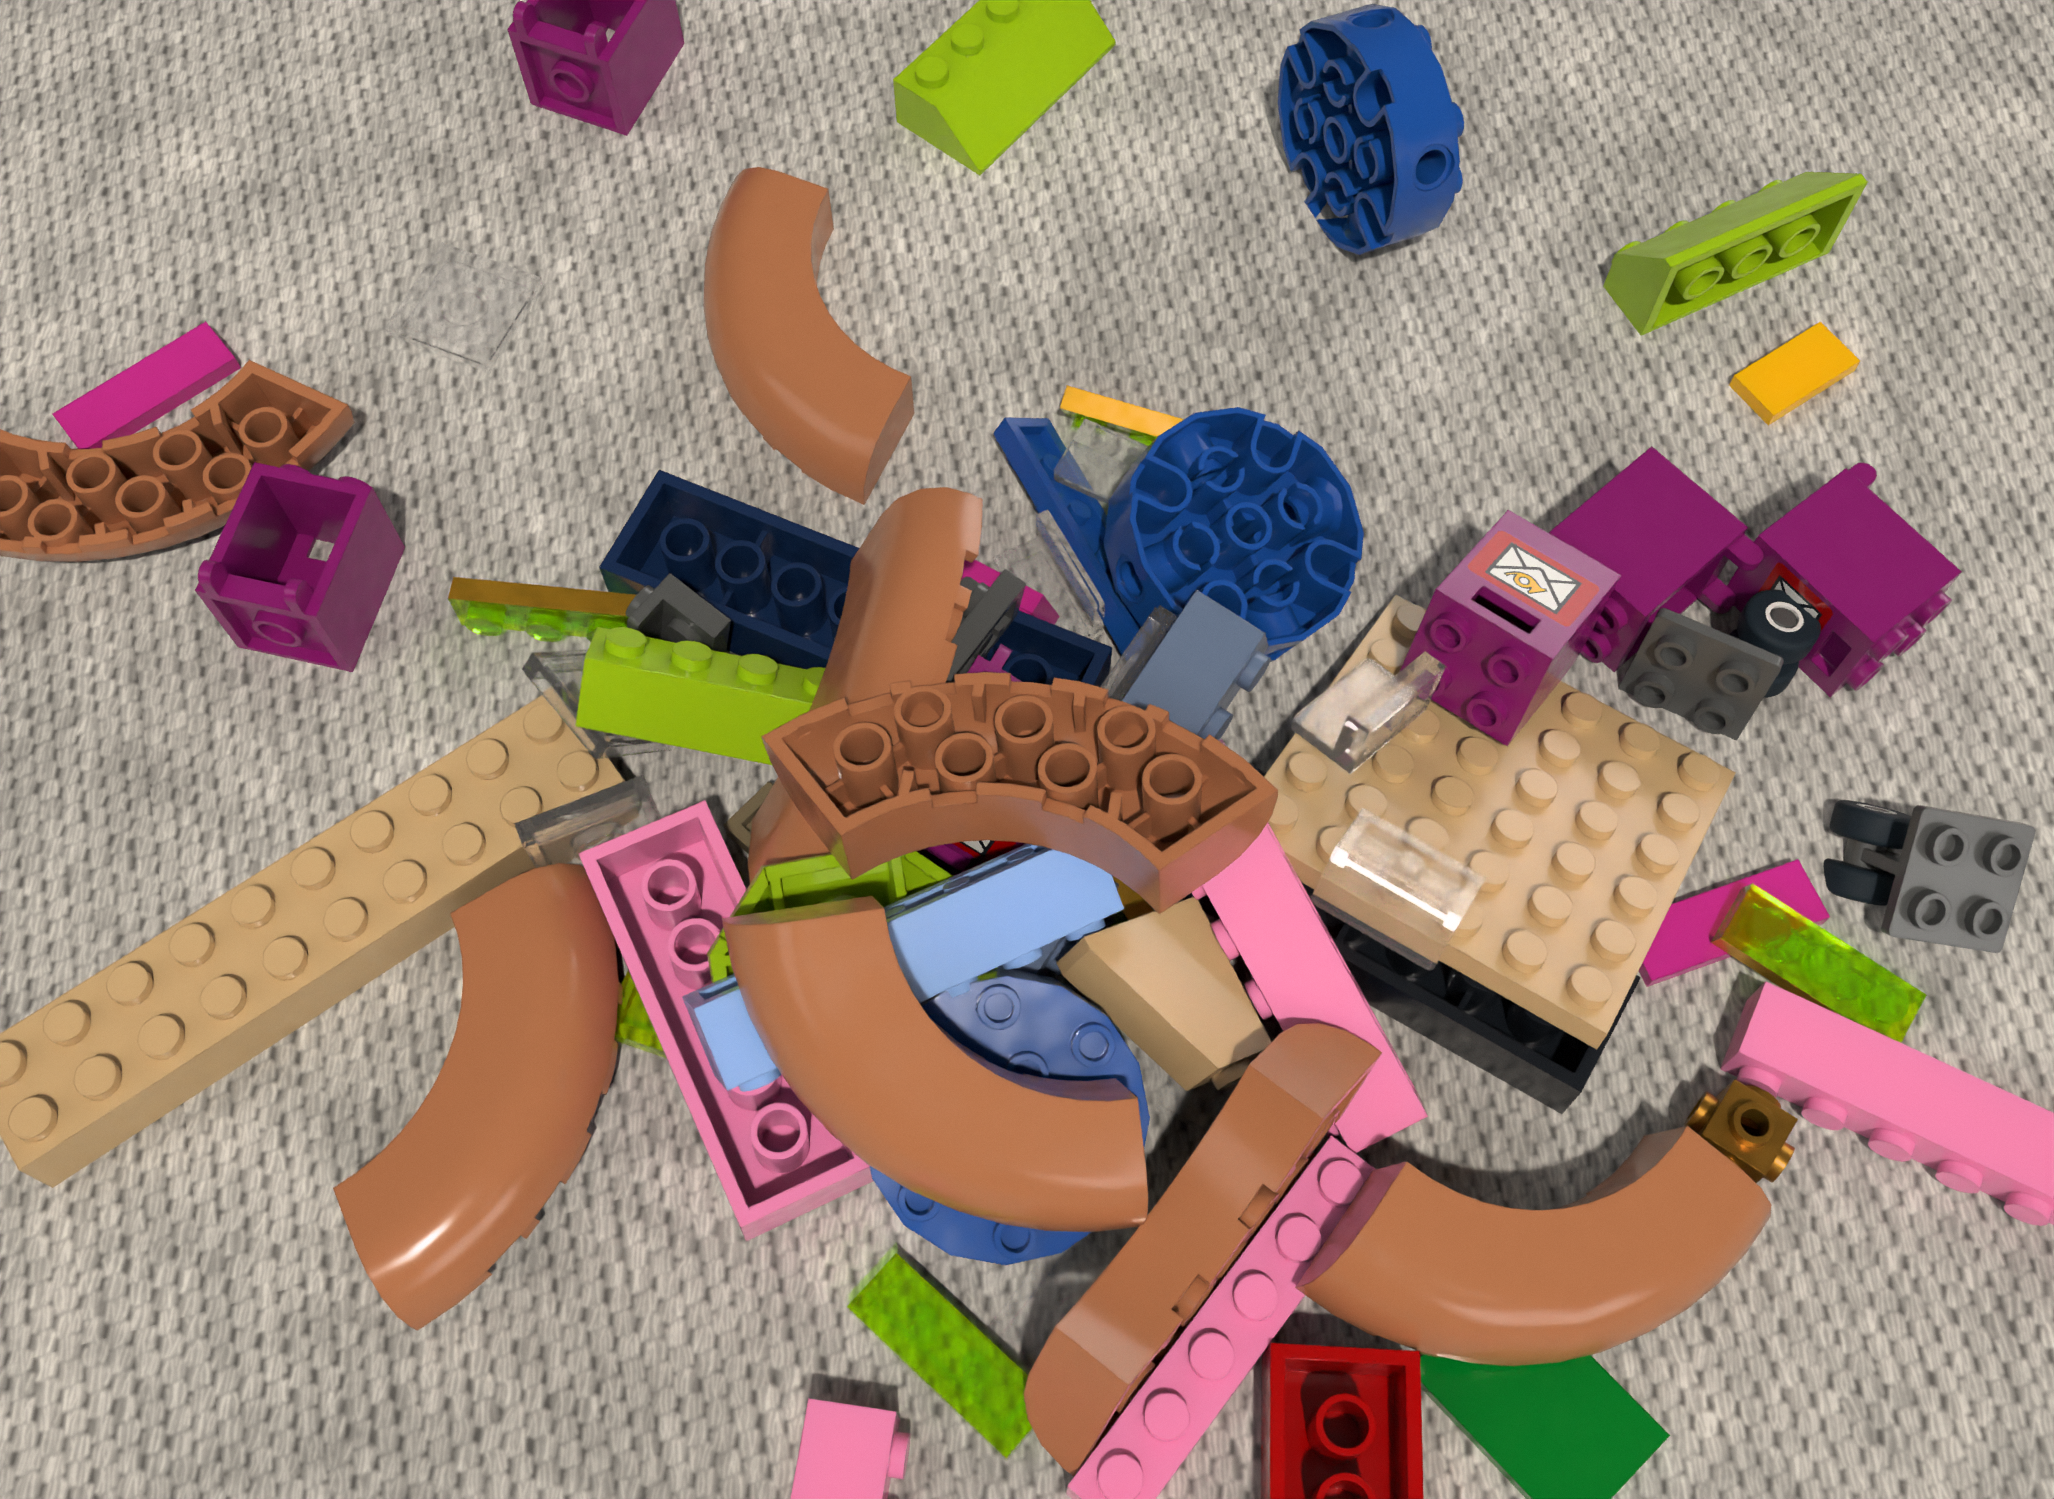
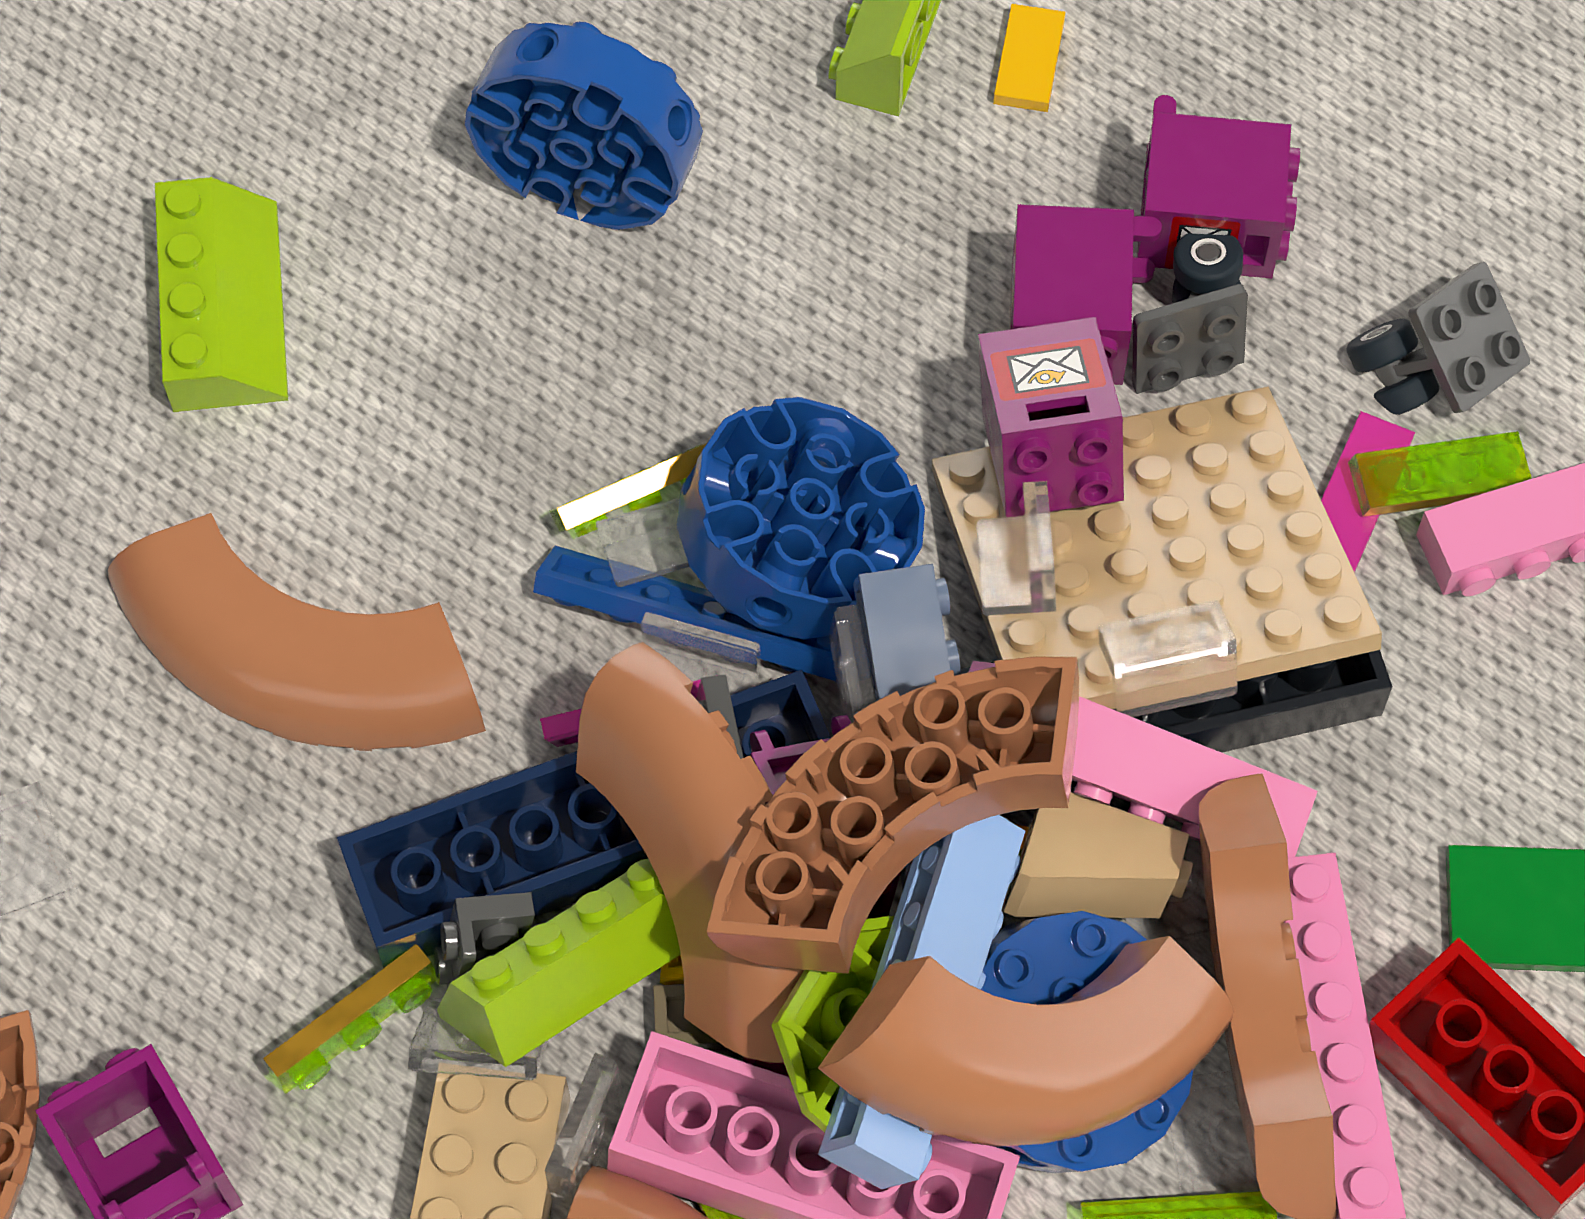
camera: 45 degrees left, 0 degrees up
(1538, 1283) = (1480, 834): nougat brick -> none
(1746, 1128) = (1500, 628): pearl gold brick -> none

